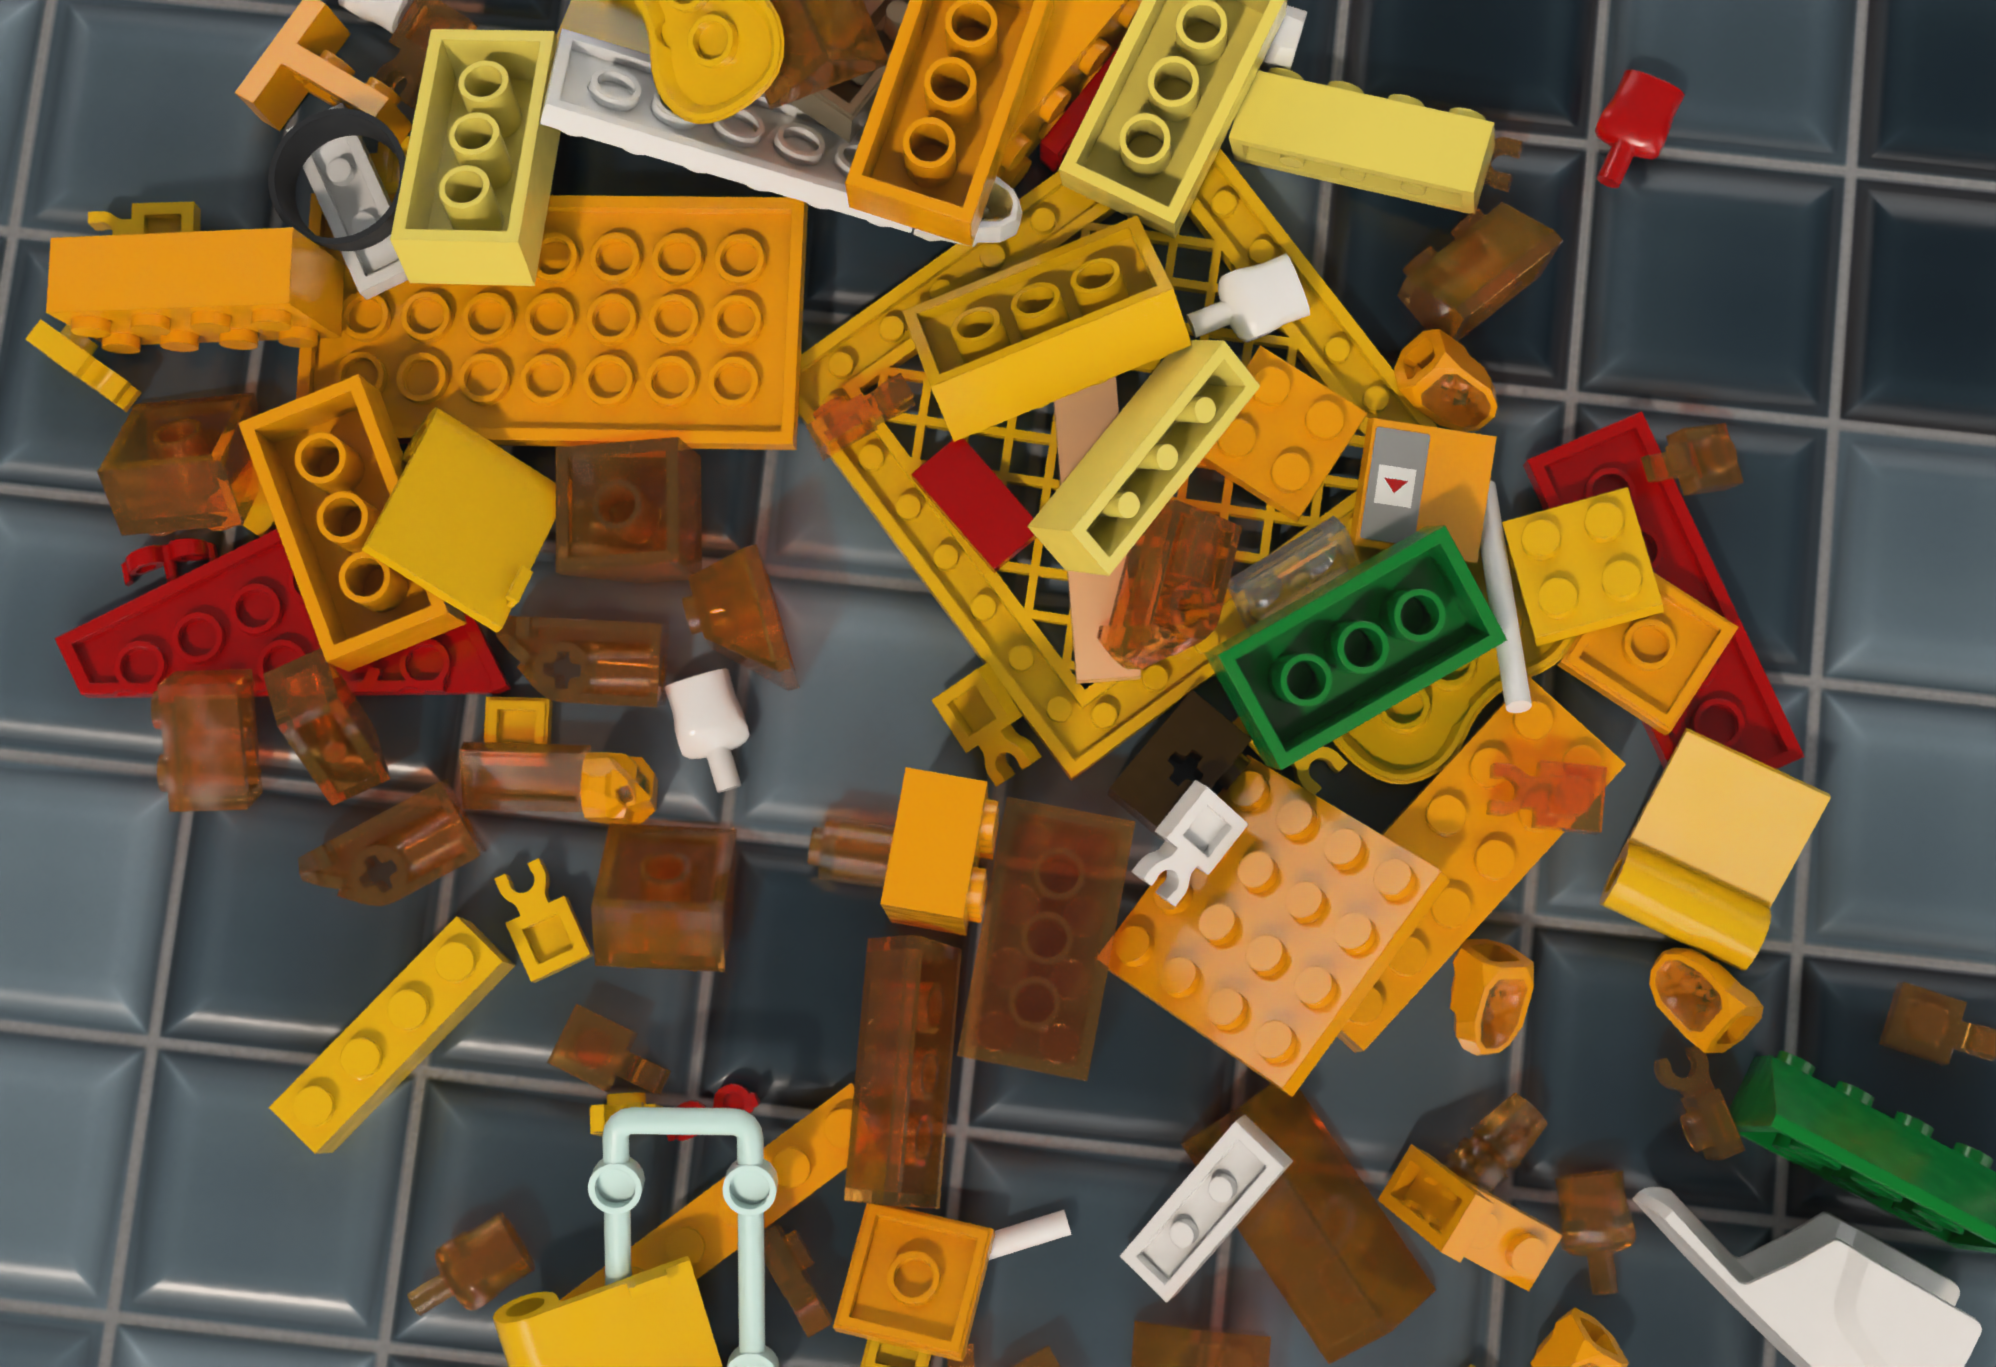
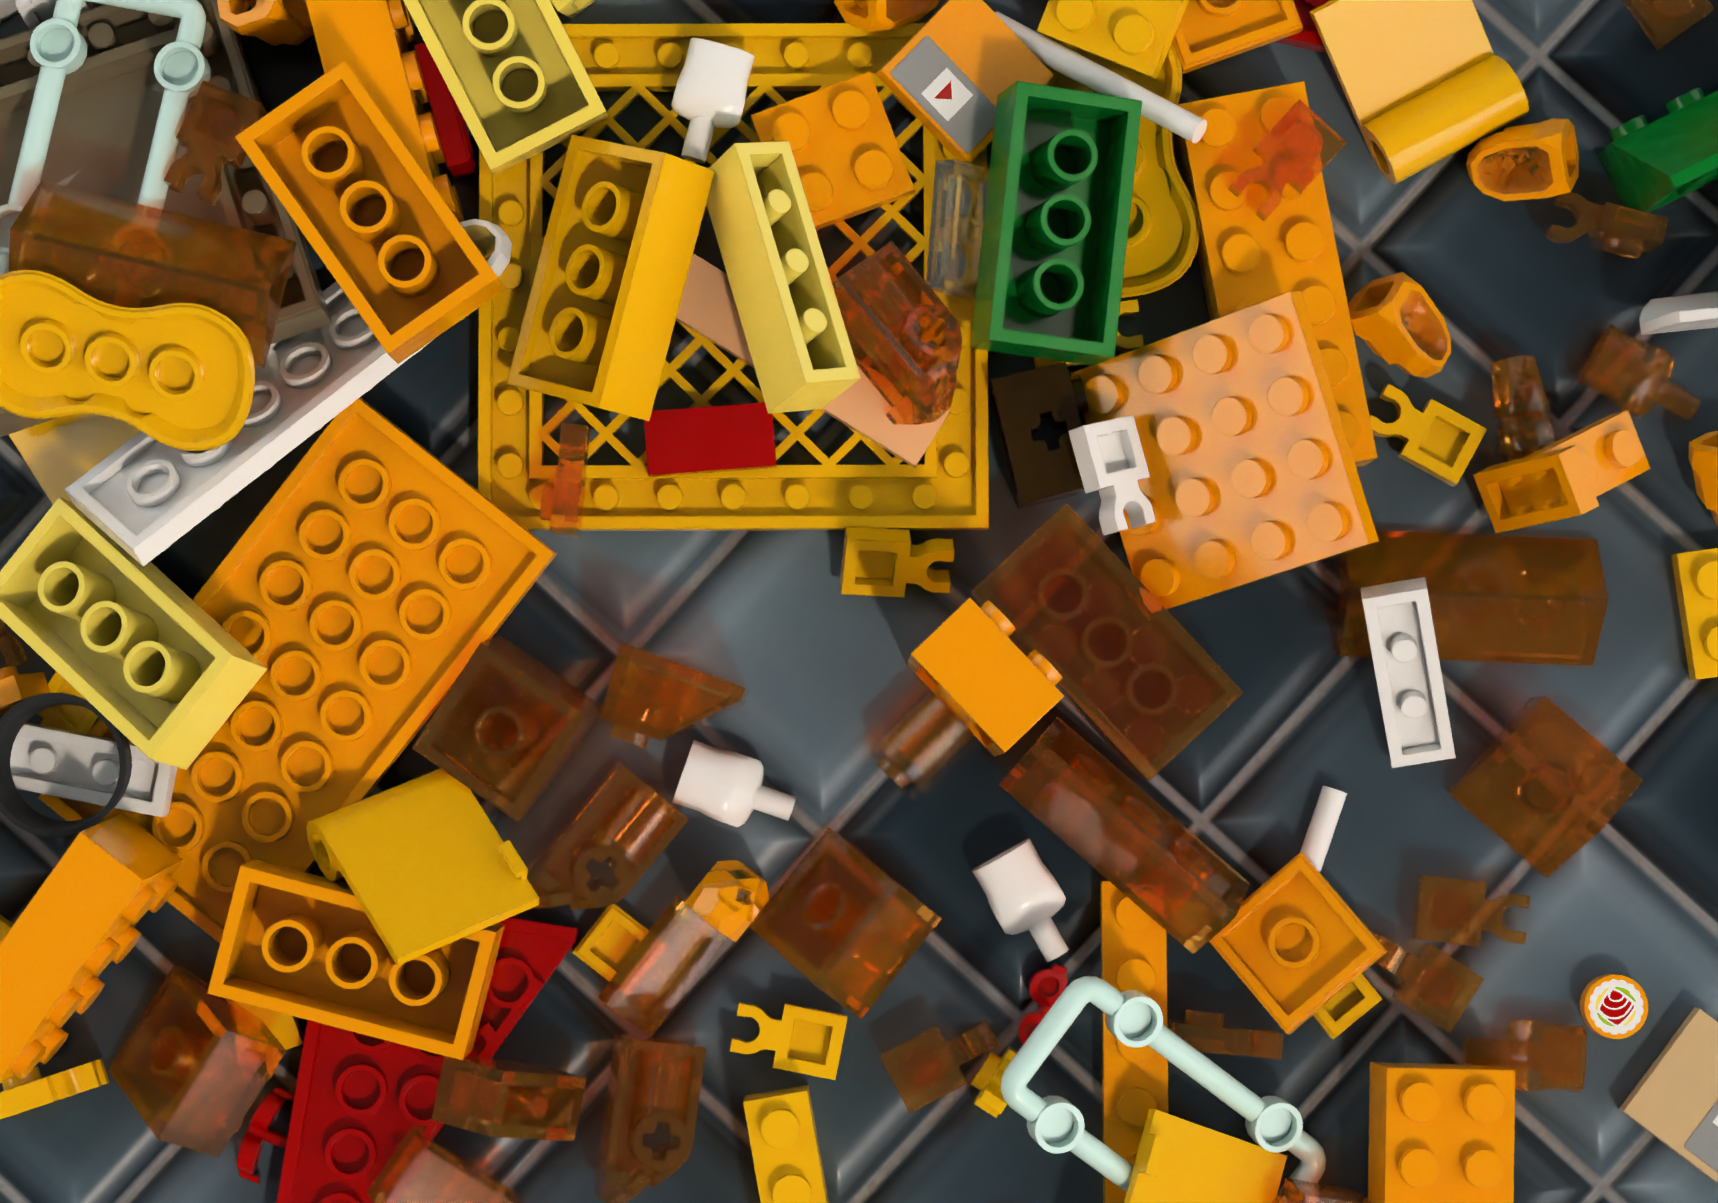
camera: 55 degrees left, 5 degrees up
(793, 1028) = (1024, 896): none -> white piece
(1417, 1093) = (1434, 439): none -> yellow plate

